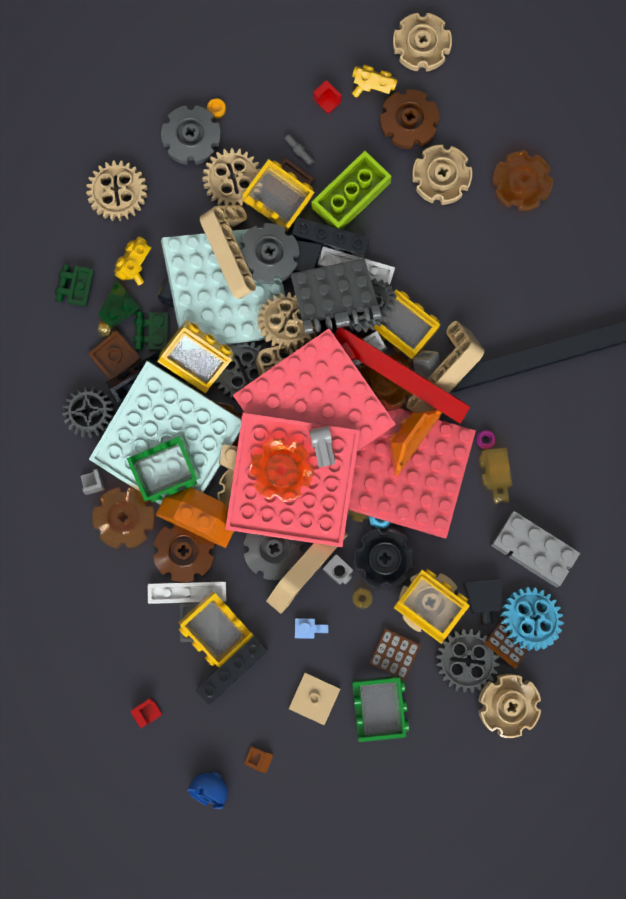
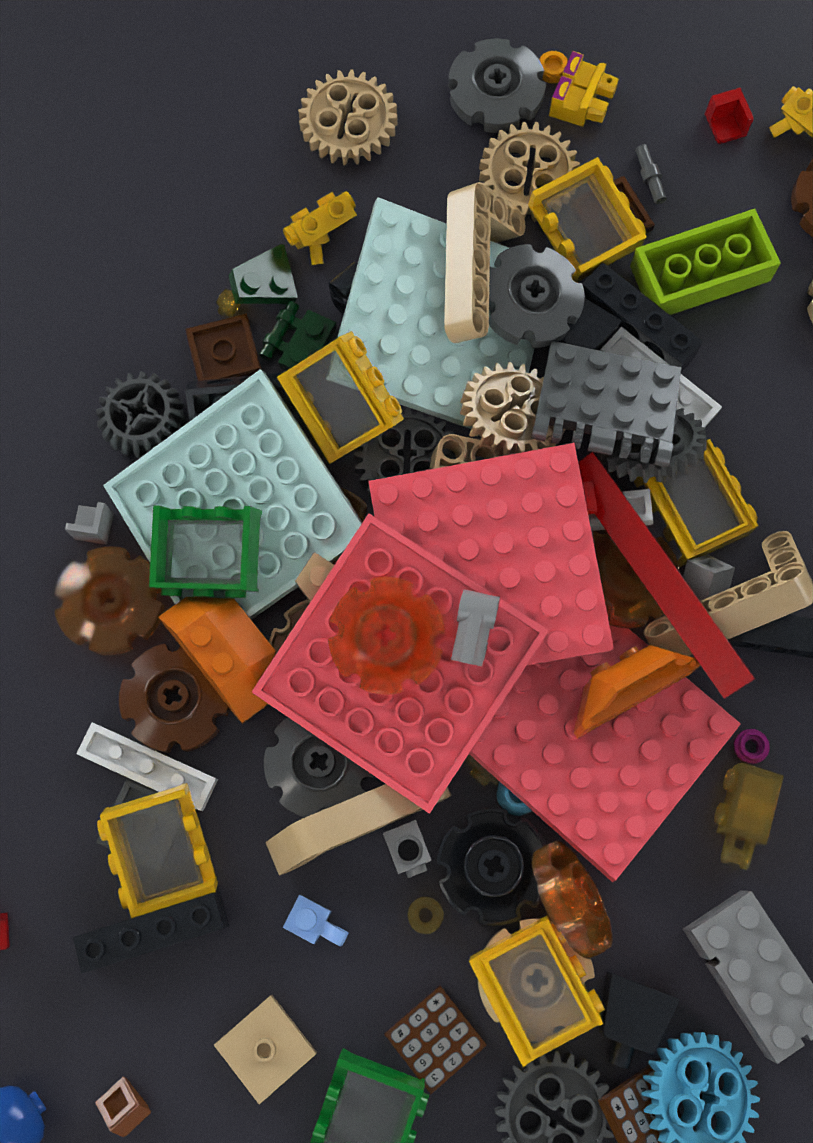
camera: 30 degrees right, 5 degrees down
(80, 285) = (223, 229): dark green plate -> none
(237, 117) = (577, 92): none -> yellow hips
(430, 555) = (572, 899): none -> clear orange piece

